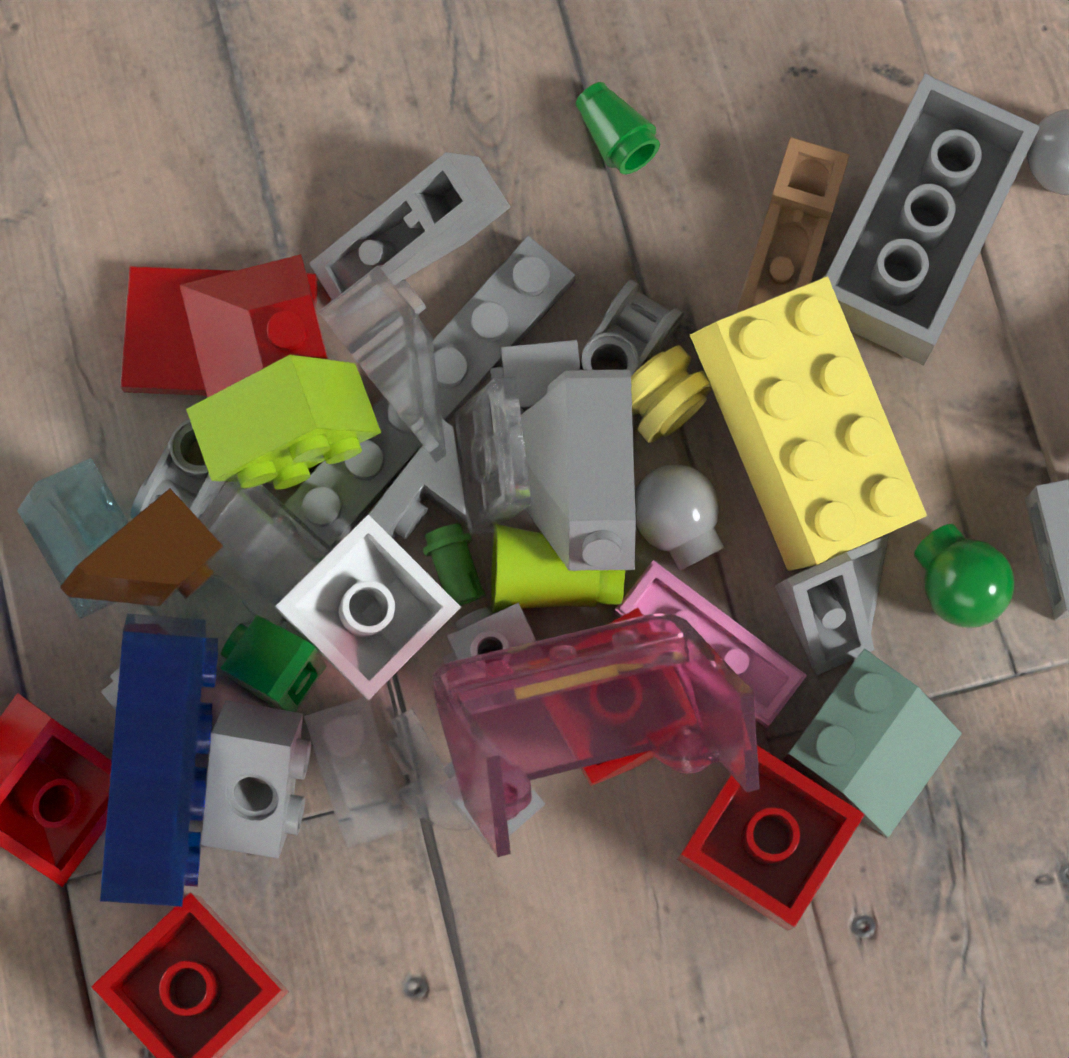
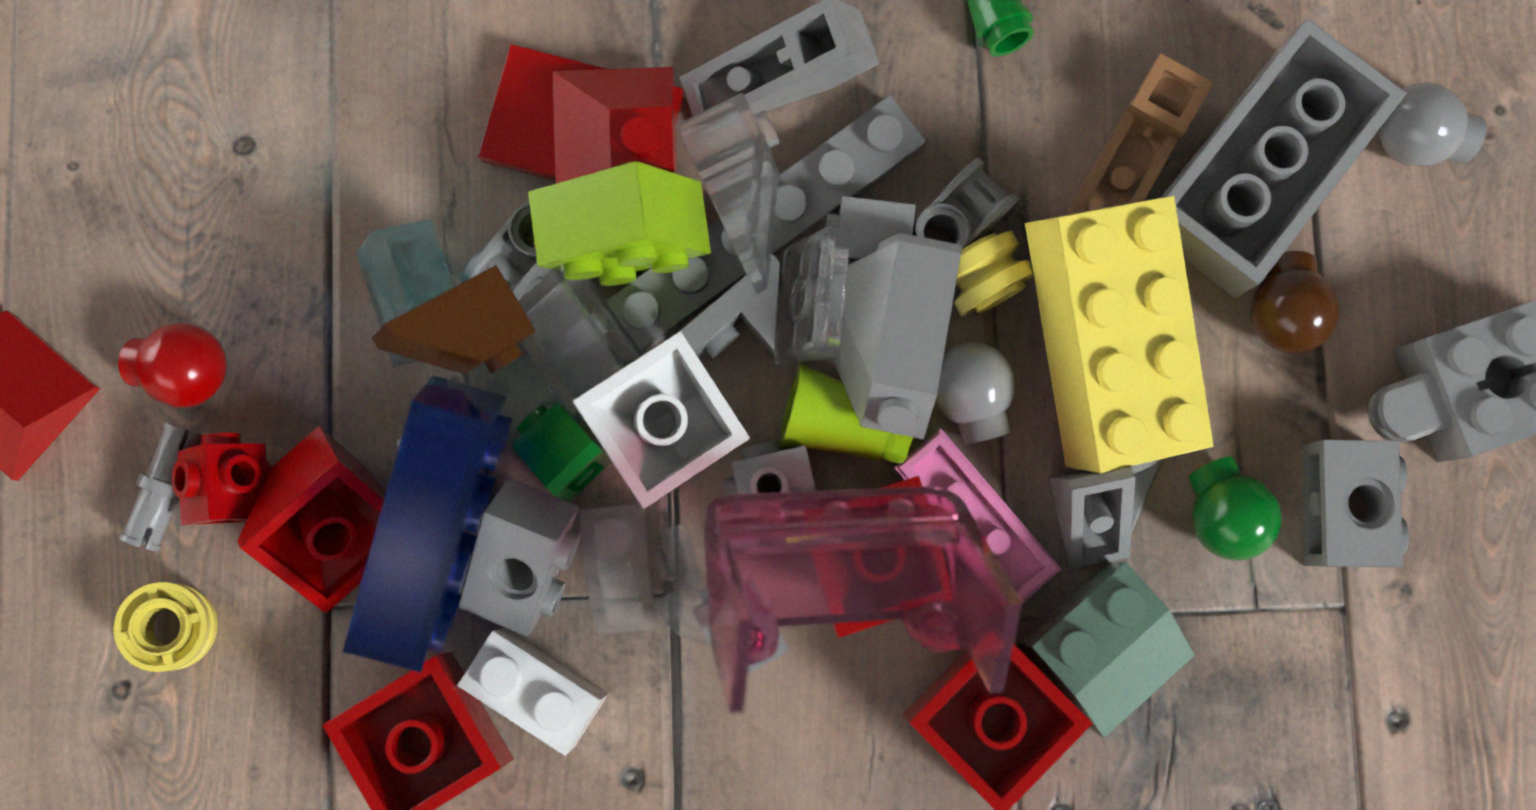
camera: 10 degrees right, 5 degrees up
(295, 912) = (532, 690): none -> white brick
(454, 563) = (753, 391): bright green pin -> none
(980, 358) = (1294, 305): none -> reddish brown piece

